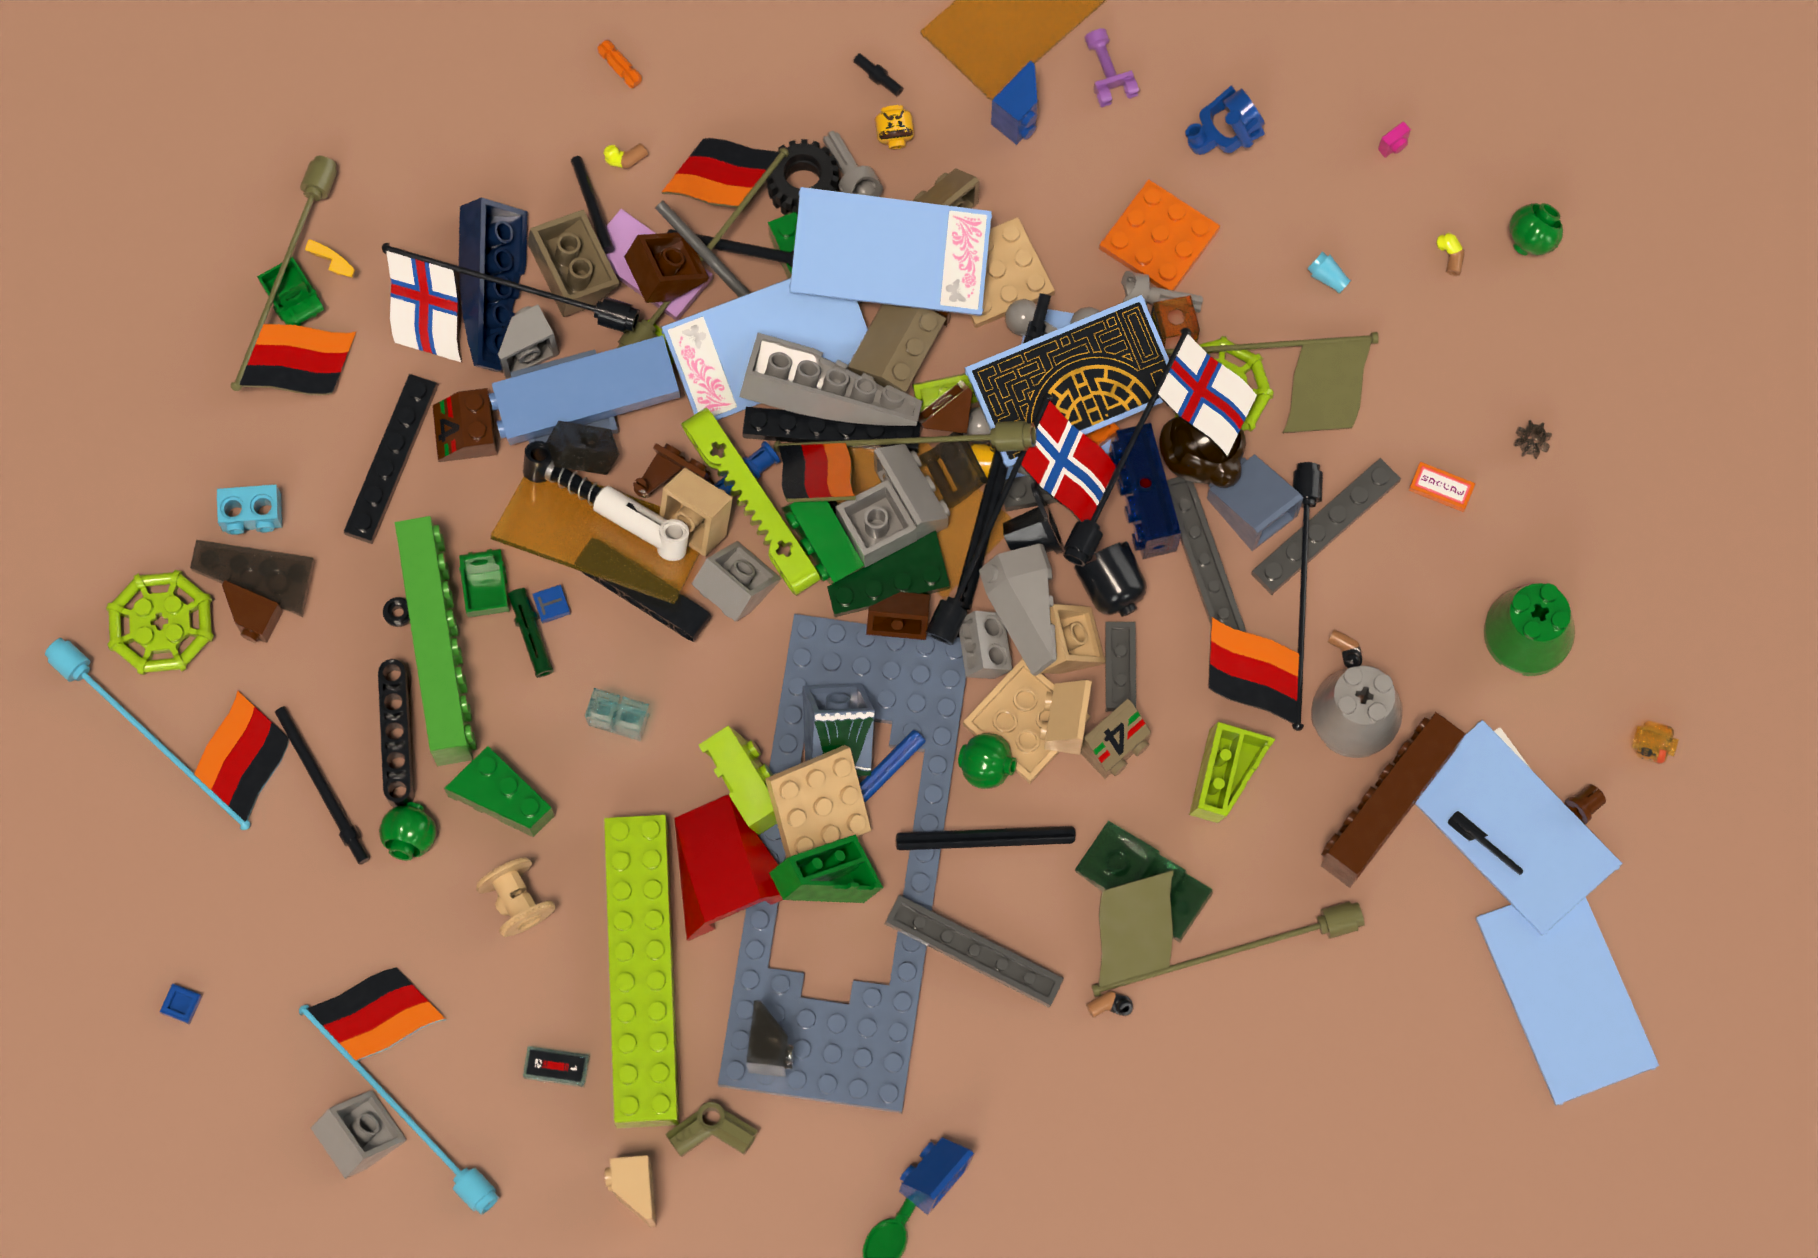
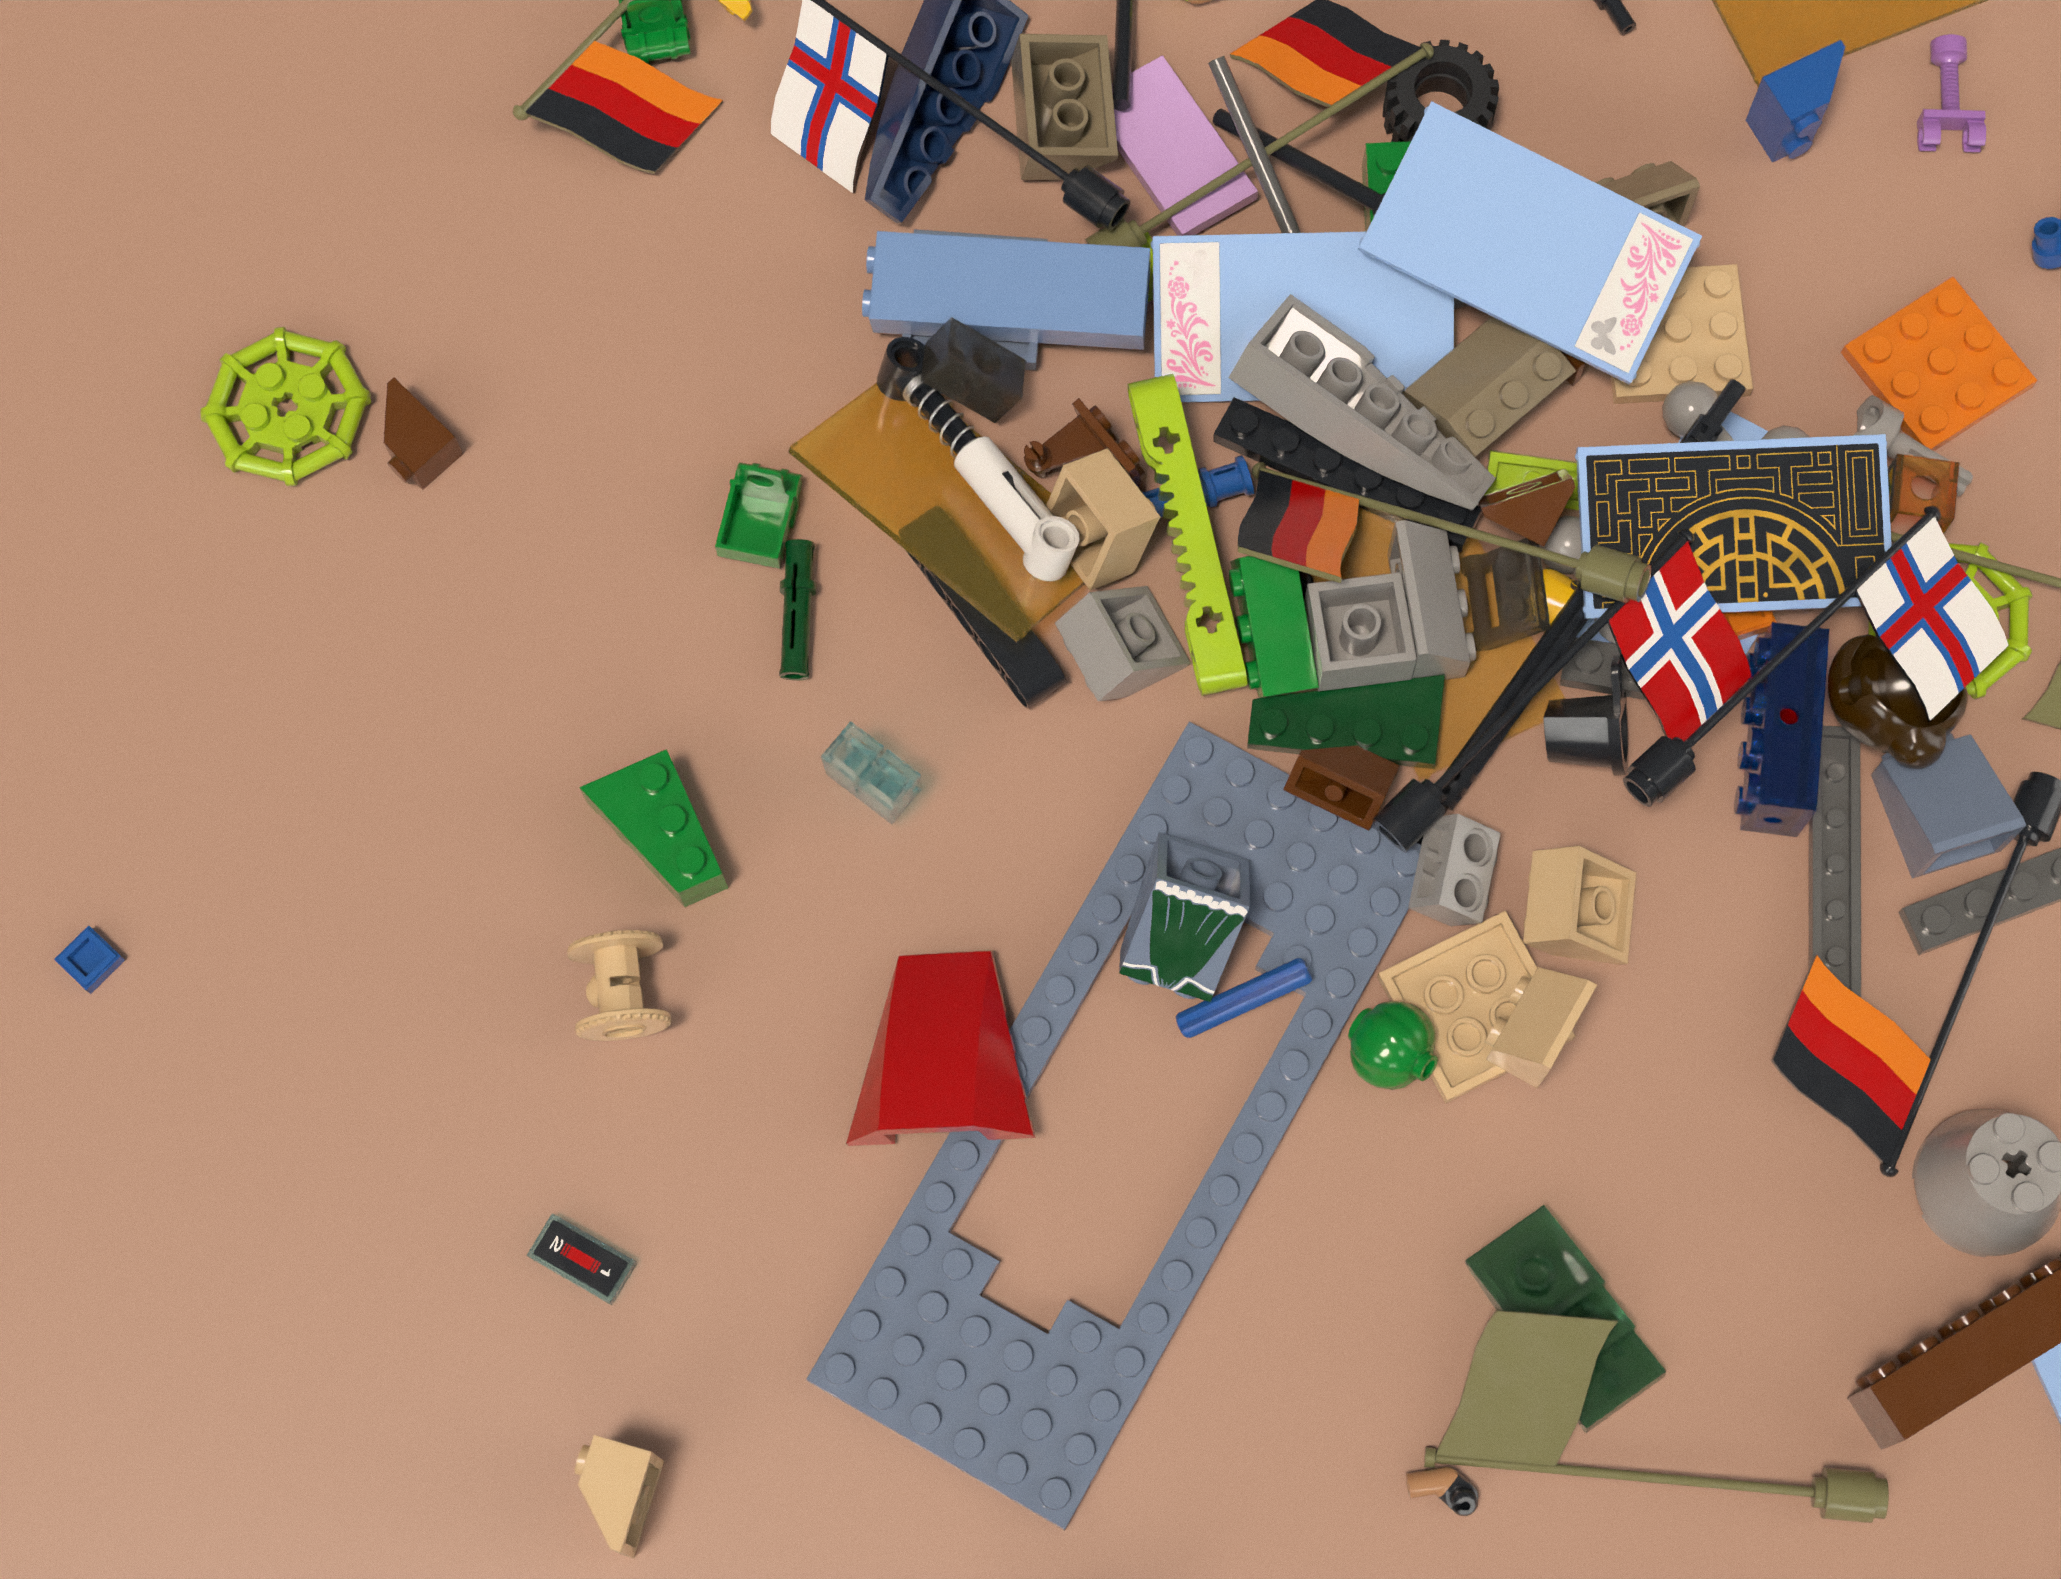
camera: 25 degrees right, 0 degrees up
(235, 759) = (309, 638): flag -> none
(250, 500) = (478, 281): medium azure brick -> none
(267, 573) = (456, 389): clear smoke wing -> none
(348, 833) = (423, 803): black bar -> none
(357, 1133) = (256, 1247): light grey slope -> none
(373, 1020) = (346, 1088): flag -> none
(390, 459) = (699, 293): black plate -> none
(391, 606) = (621, 499): black plate -> none
(392, 720) = (550, 705): black beam -> none
(407, 831) = (506, 831): green plant -> none
(434, 641) = (652, 572): bright green brick -> none
(465, 426) = (821, 283): reddish brown slope -> none
(527, 341) = (952, 191): light grey slope -> none
(551, 604) = (843, 579): blue tile -> none
(641, 972) = (758, 1168): lime brick -> none
(664, 266) = (1191, 154): reddish brown slope -> none
(728, 1129) = (744, 1438): olive piece -> none
(743, 775) = (1022, 938): lime wedge -> none
(768, 1045) = (896, 1352): clear smoke slope -> none
(818, 802) = (1114, 1016): tan plate -> none
(828, 874) = (1089, 1126): green wedge -> none
(856, 179) = (1516, 121): light grey piece -> none
(894, 126) = (1602, 74): yellow head -> none
(974, 951) = (1266, 1327): dark grey plate -> none
(985, 838) = (1347, 1161): black axle -> none
(1020, 595) = (1535, 817): light grey wedge -> none
(1113, 580) = (1685, 845): black cylinder -> none
(1116, 740) = (1601, 1087): dark tan slope -> none
(1120, 664) = (1648, 978): dark grey plate -> none
(1225, 769) = (1754, 1195): lime wedge -> none
(1349, 647) = (2012, 1080): arm -> none

